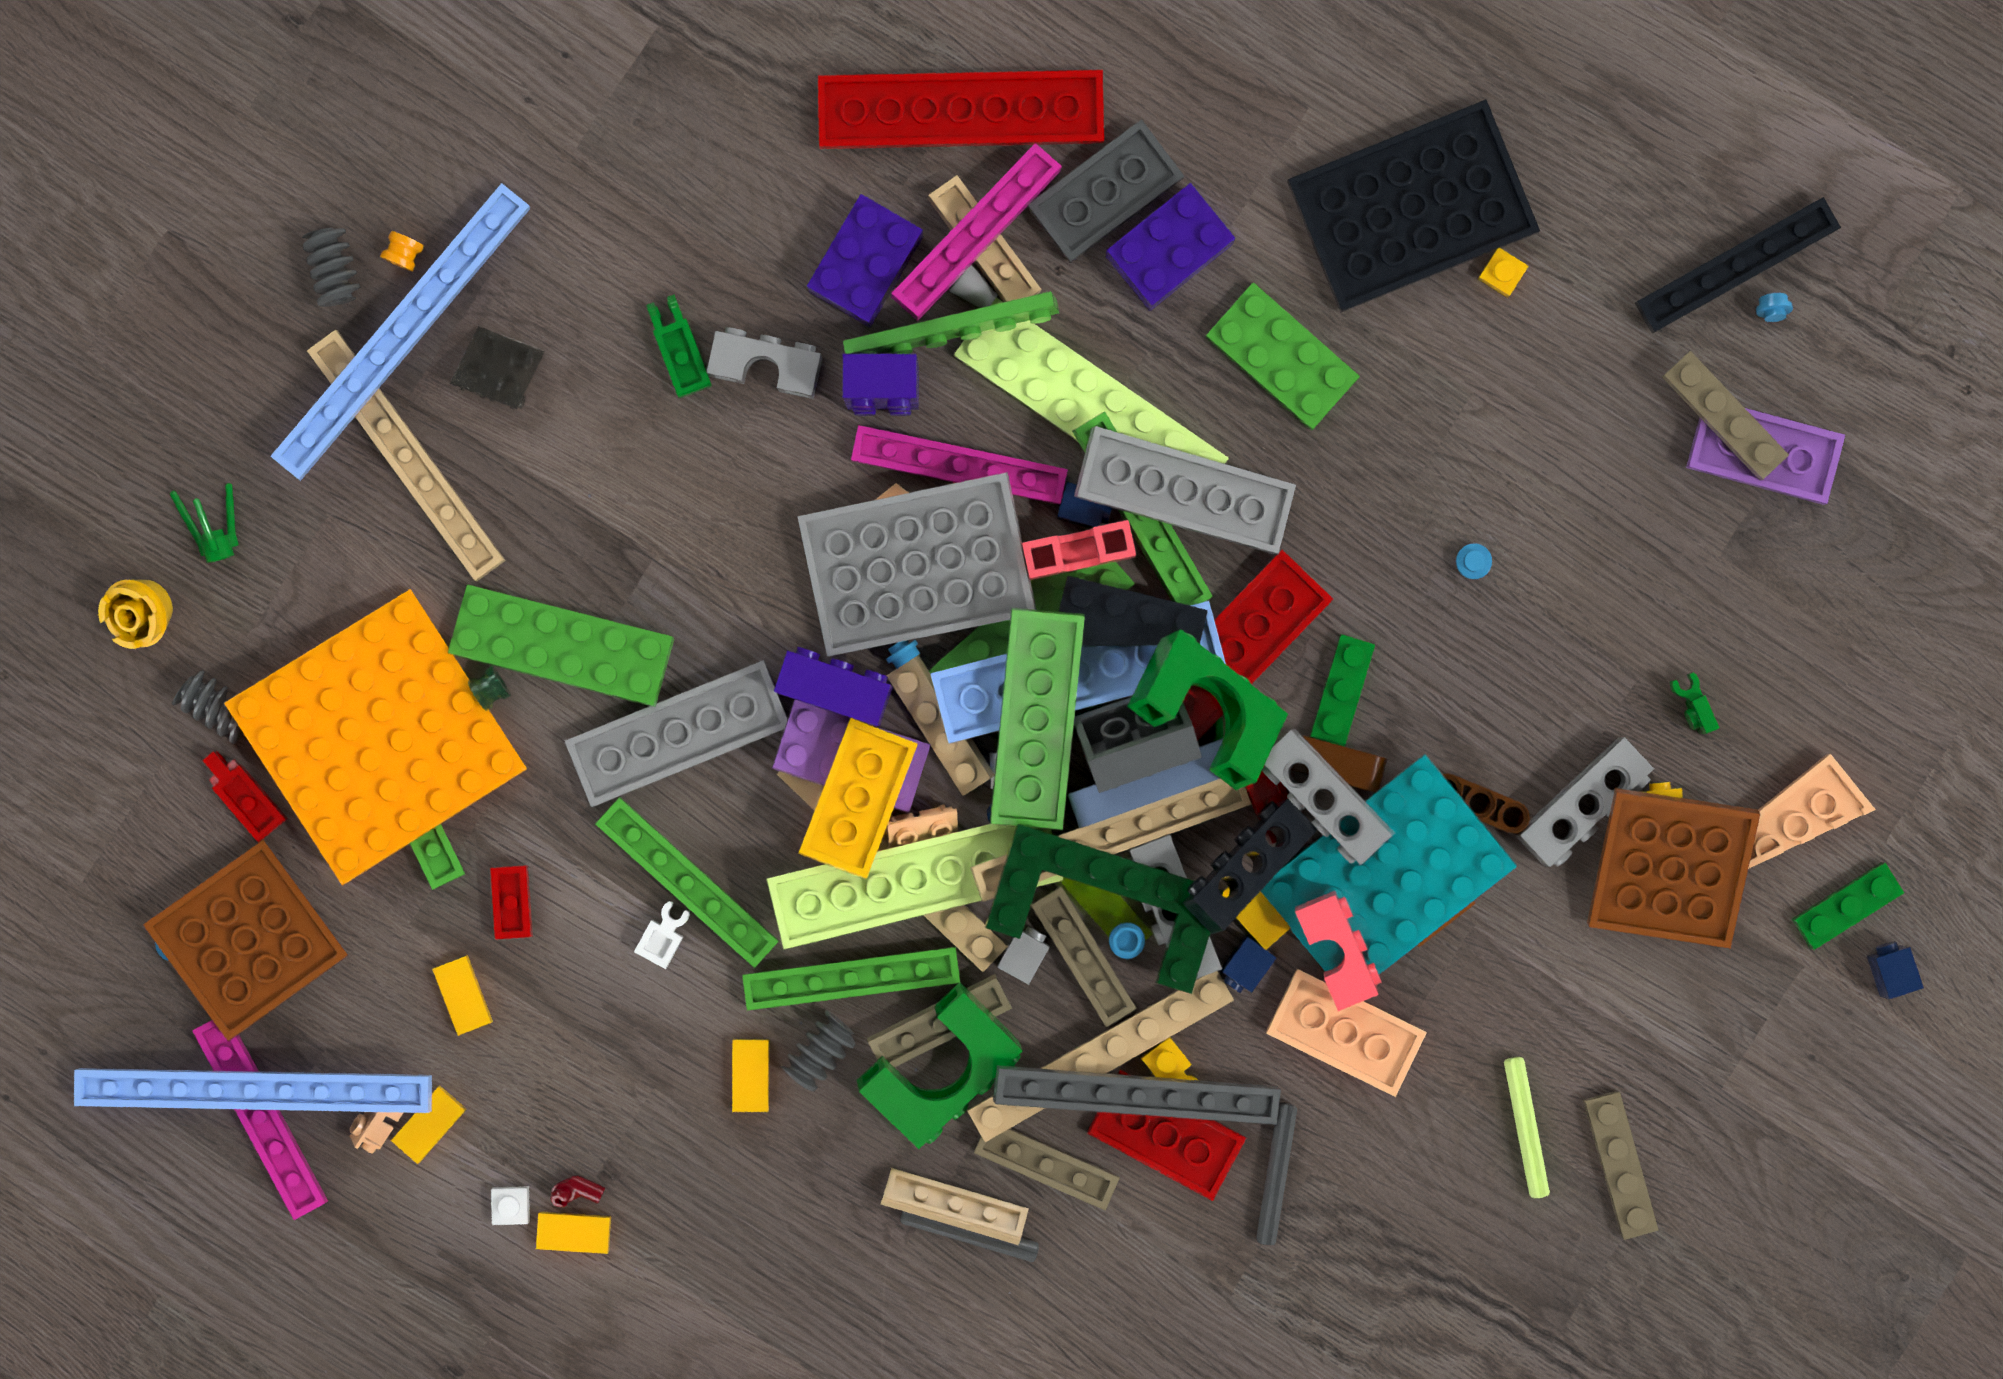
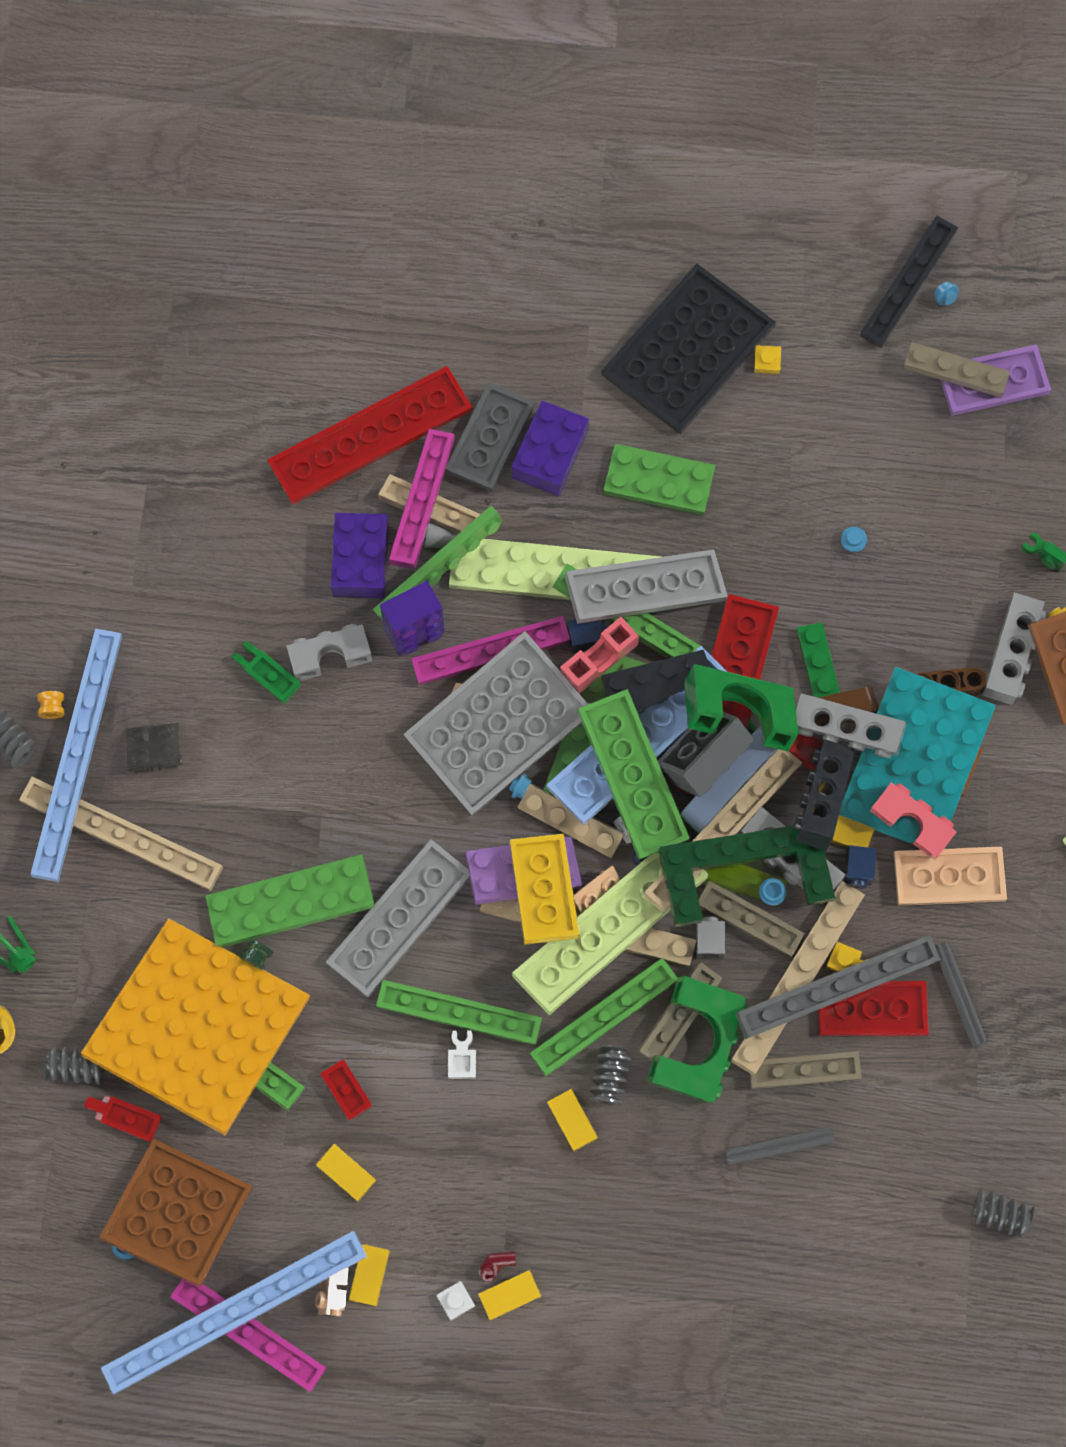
camera: 30 degrees left, 15 degrees down
(834, 686) = (486, 826): dark purple brick -> none
(954, 1206) = (759, 1132): tan tile -> none

